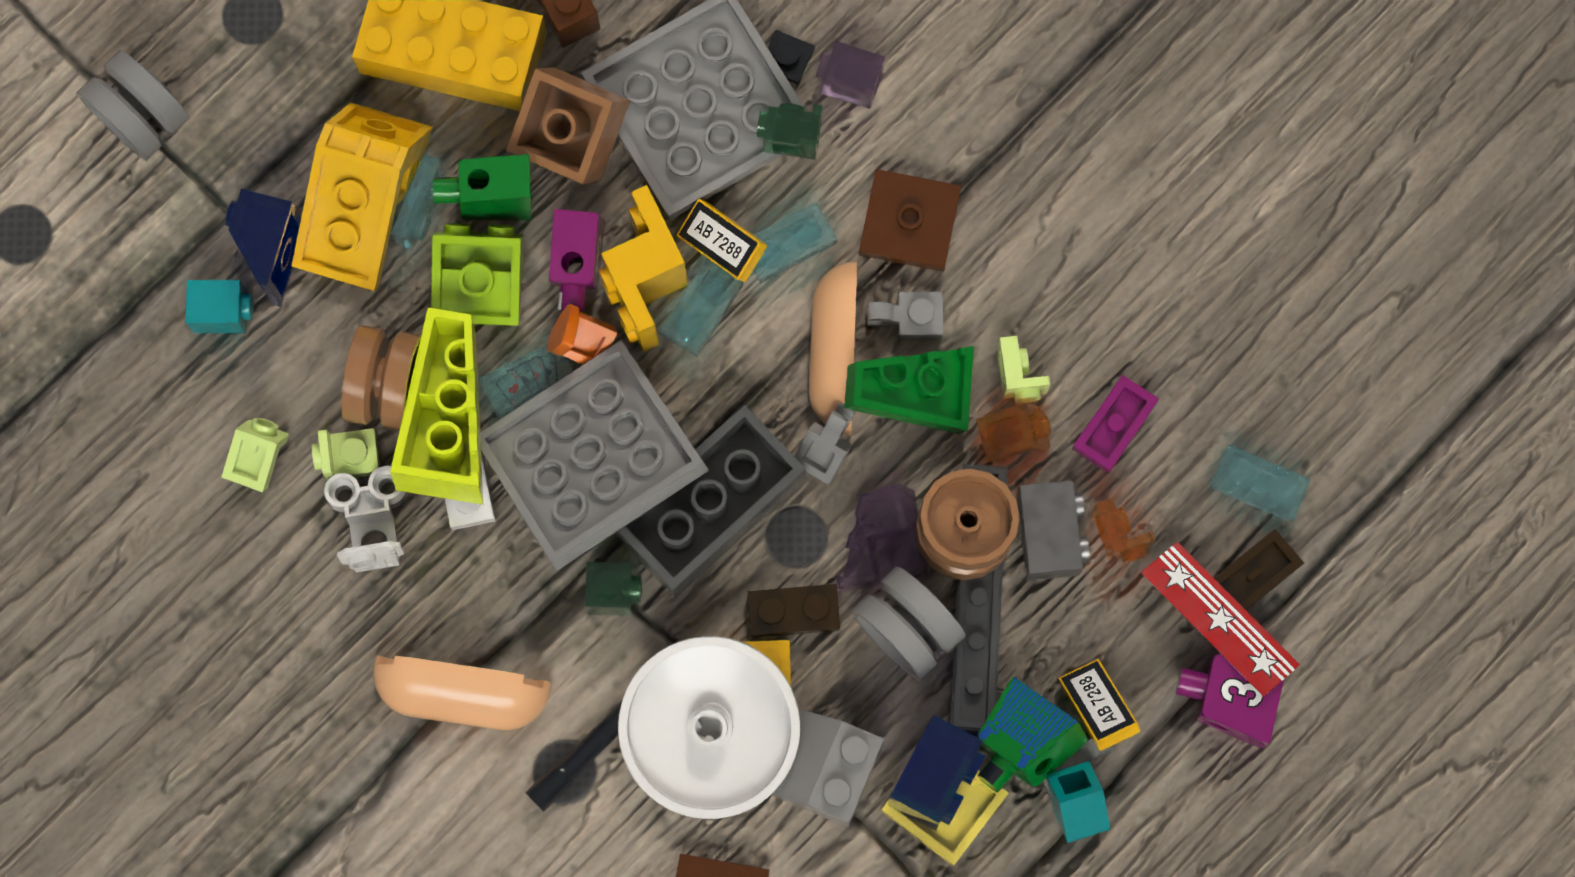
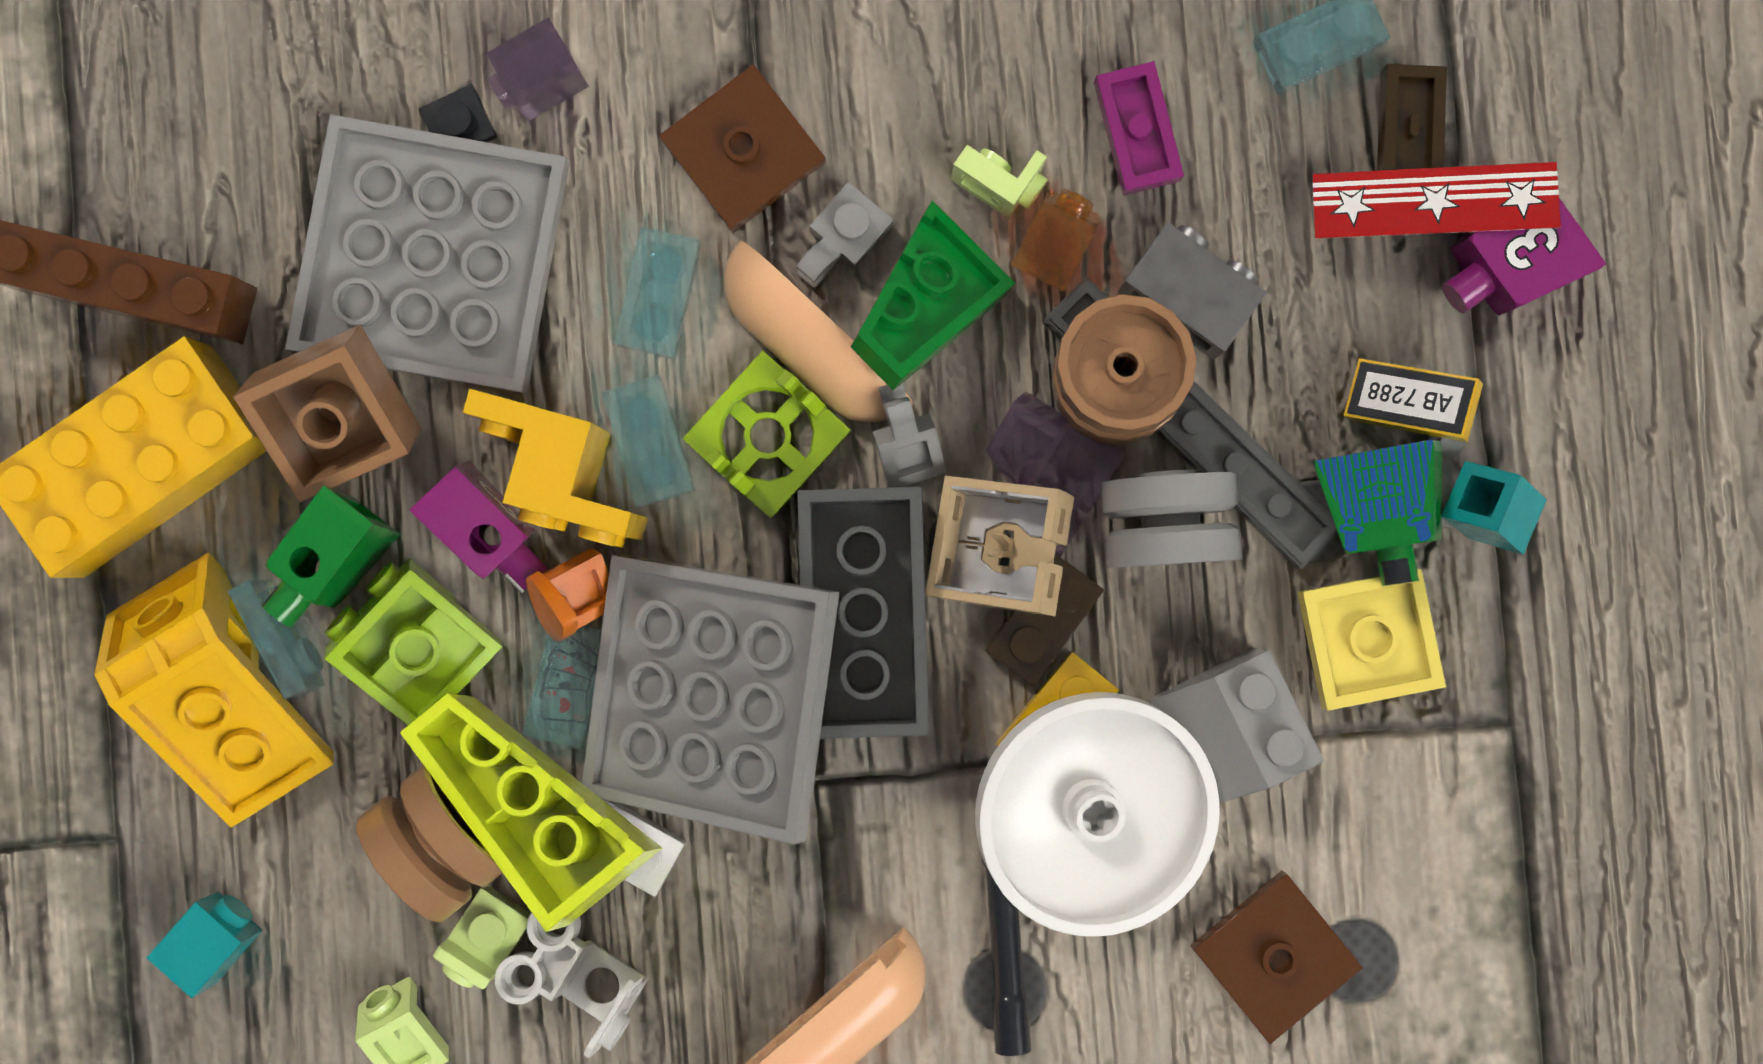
camera: 50 degrees left, 10 degrees up
(267, 237) = (174, 843): clear blue slope -> none
(611, 588) = (865, 789): clear green brick -> none
(722, 240) = (596, 359): tile -> none
(733, 336) = (759, 376): none -> lime piece
(791, 130) = (542, 184): clear green brick -> none
(803, 533) = (973, 541): none -> tan piece
(935, 773) = (1362, 633): clear blue brick -> none
(1113, 527) = (1243, 226): clear orange bracket -> none

